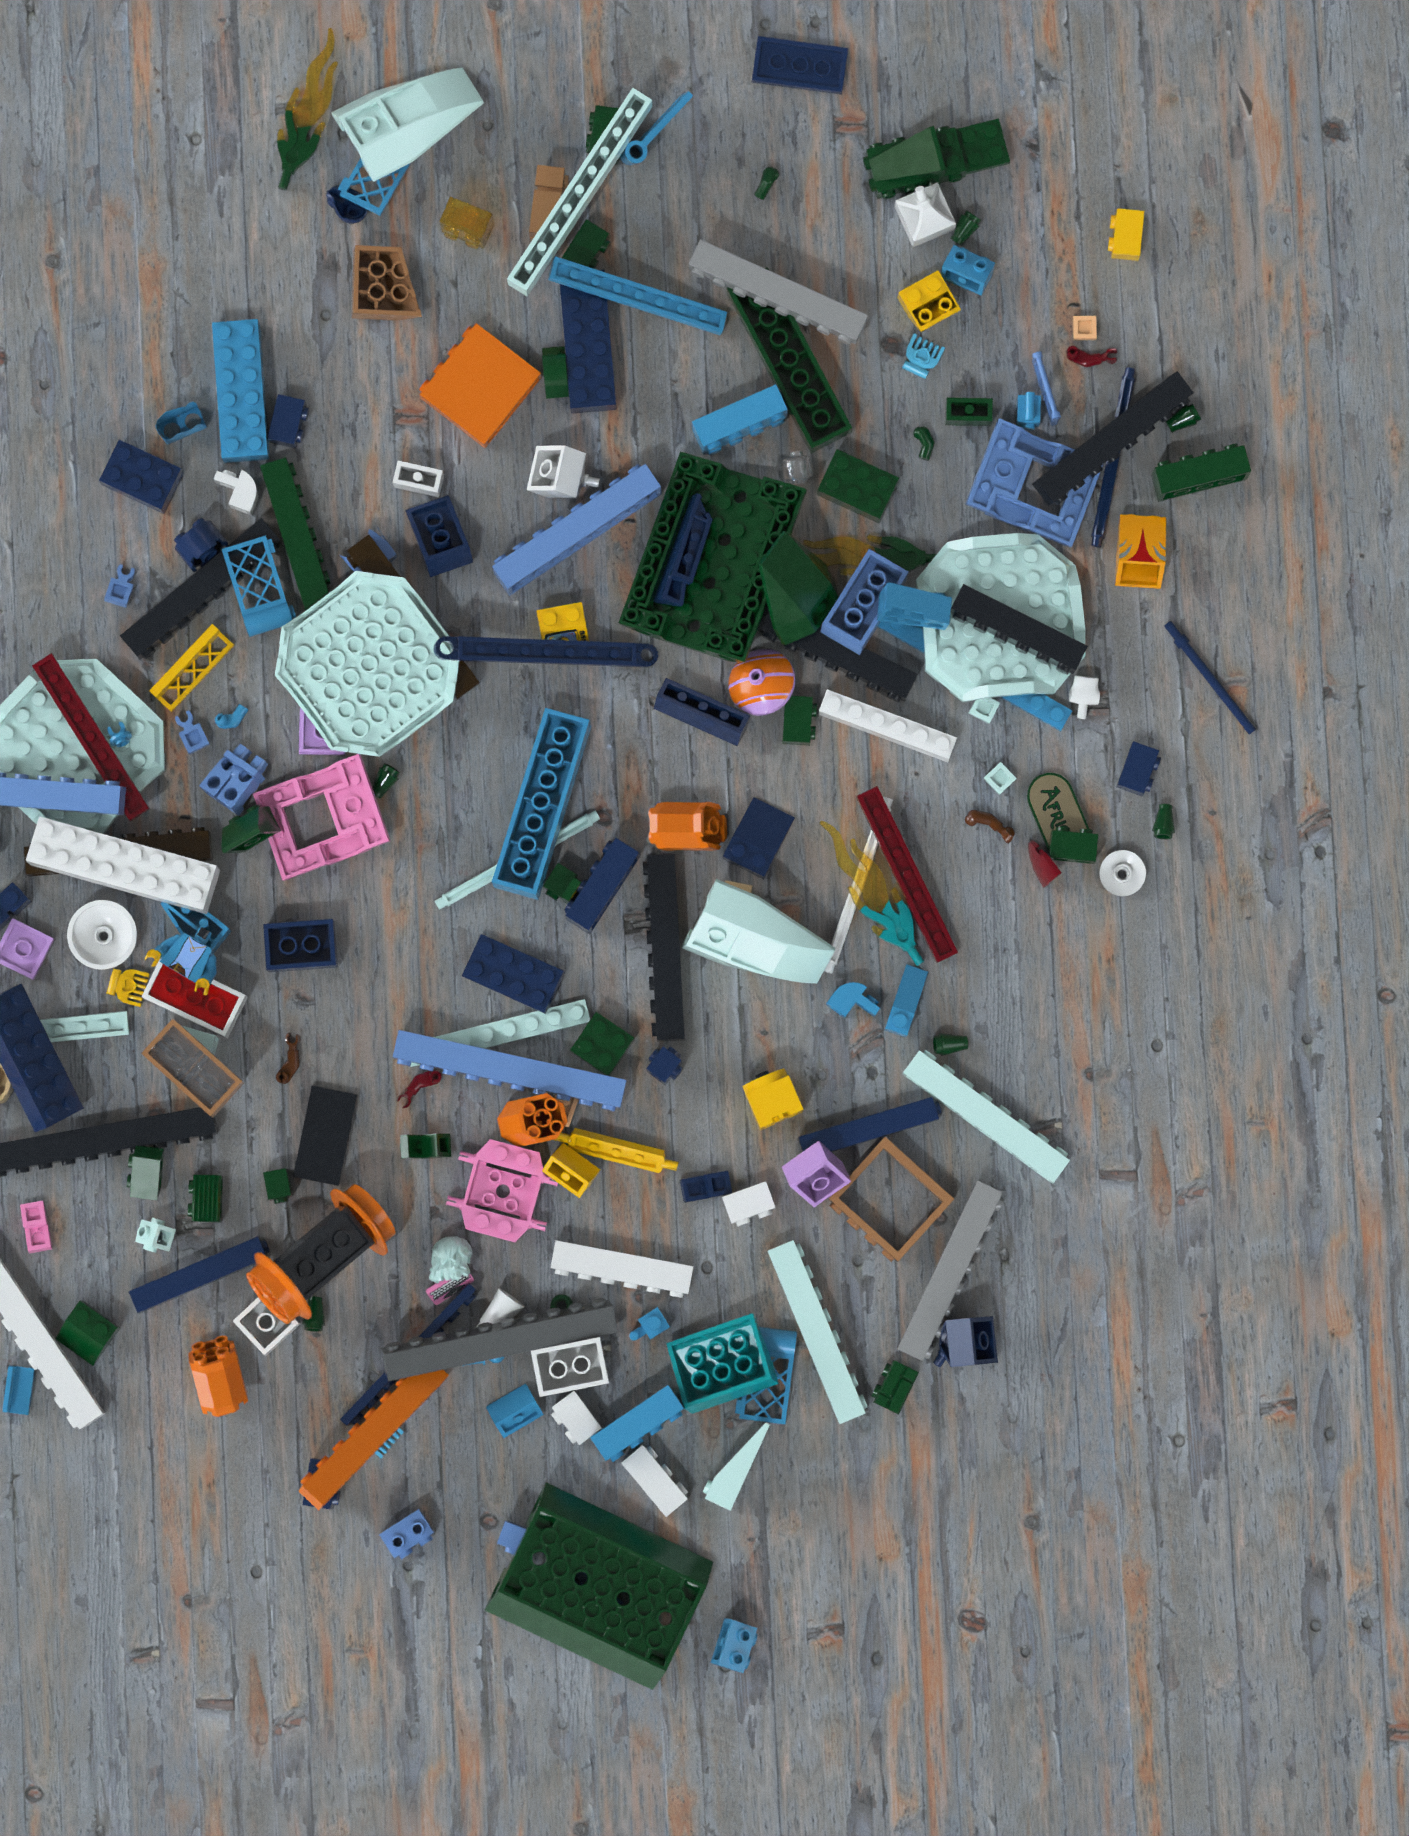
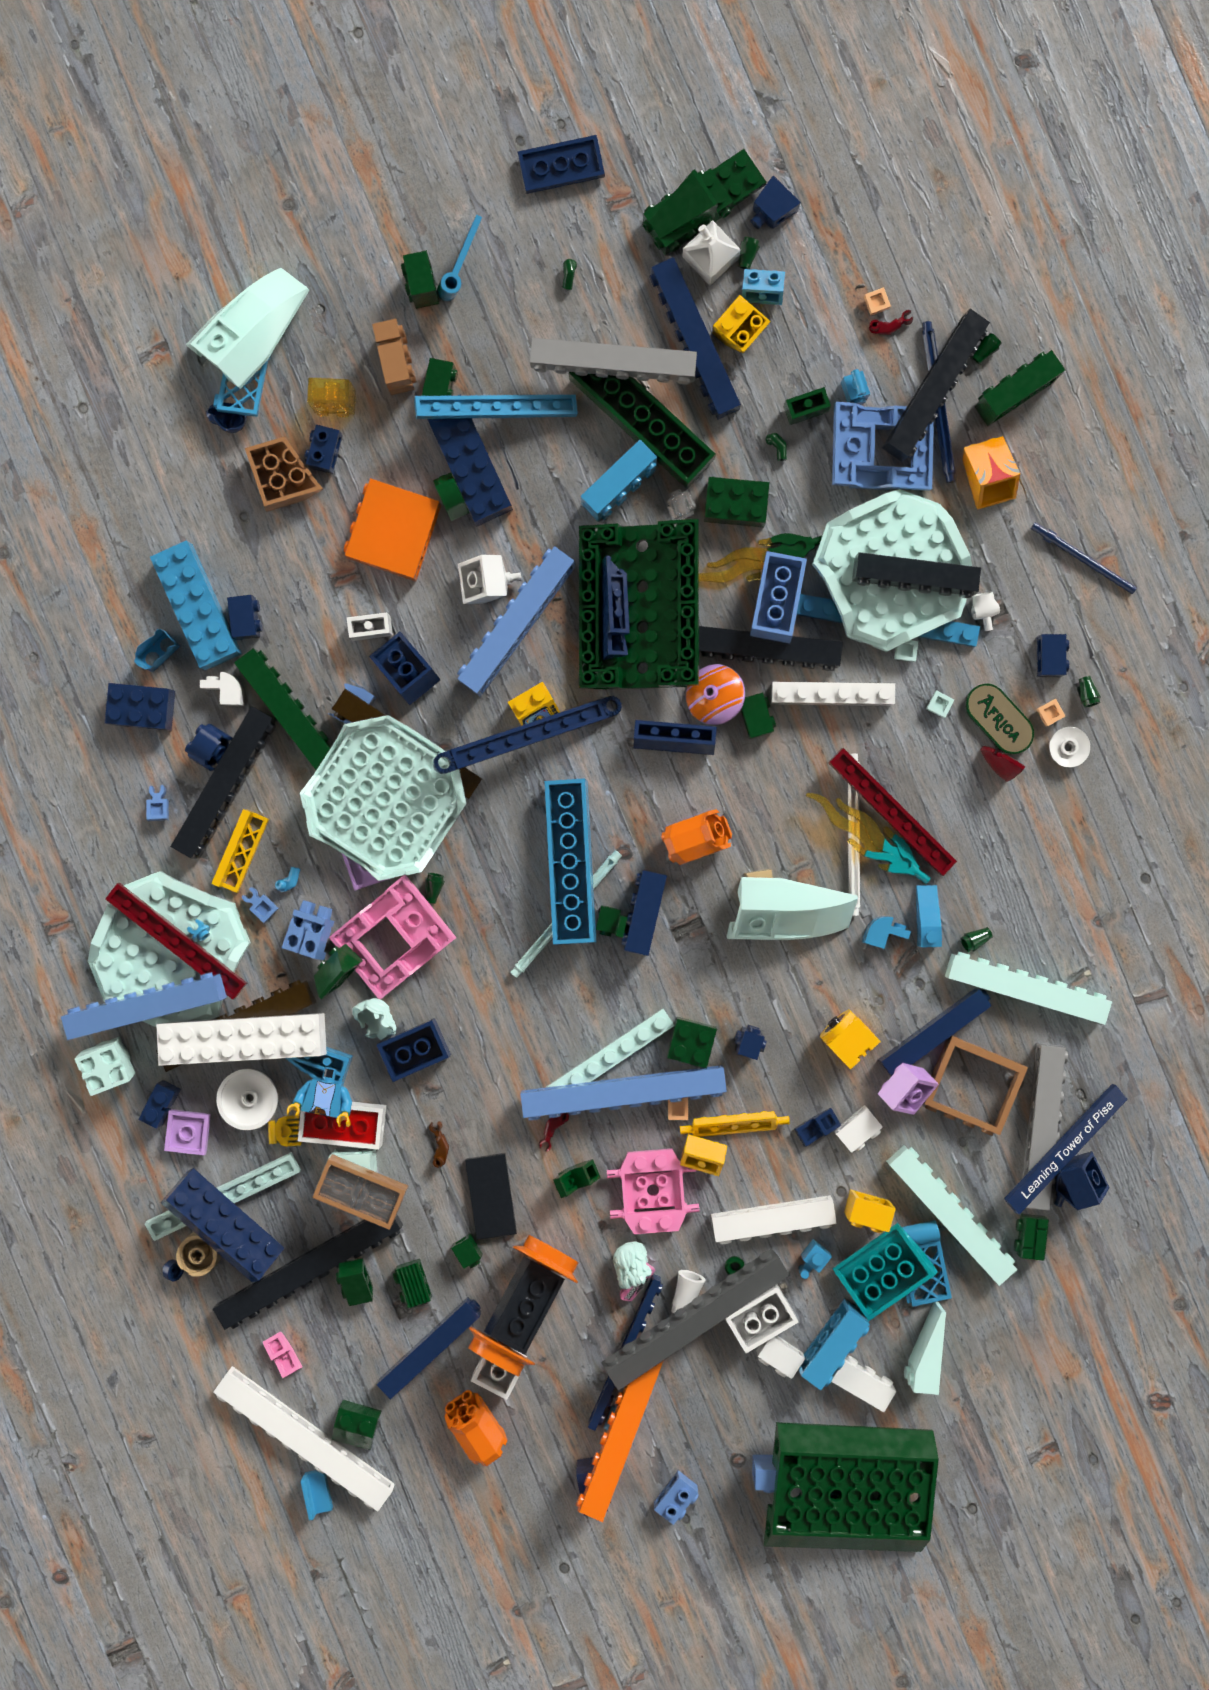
camera: 25 degrees left, 5 degrees up
(155, 1235) = (381, 1329): light aqua brick -> none
(267, 615) = (282, 788): dark azure piece -> none
(273, 897) = (377, 1017): none -> light aqua hair
(300, 120) = (168, 387): piece -> none
(317, 1320) = (537, 1349): dark green cone -> none
(440, 275) = (323, 449): none -> dark blue brick
(513, 974) = (597, 1009): dark blue plate -> none
(514, 1410) = (726, 1365): dark azure panel -> none
(532, 1120) = (657, 1126): orange brick -> none
(579, 192) = (416, 332): light aqua brick -> none
(665, 947) = (715, 944): black brick -> none
(728, 1293) = (869, 1211): none -> yellow brick
(734, 1645) = (976, 1495): dark azure brick -> none
(758, 838) = (758, 824): dark blue slope -> none
(796, 589) = (719, 607): dark green wedge -> none
(876, 298) = (695, 338): none -> dark blue brick
(914, 607) = (824, 587): dark azure wedge -> none
(920, 358) = (750, 377): medium azure piece -> none
(963, 1300) = (1065, 1149): none -> dark blue tile
(989, 819) = (942, 741): reddish brown arm -> none
(1010, 188) = (774, 205): none -> dark blue torso
(1053, 413) = (848, 340): medium blue window -> none
(1073, 846) = (1022, 740): dark green brick -> none
(1115, 829) = (1050, 712): none -> light nougat plate
(1126, 235) = (884, 209): yellow brick -> none

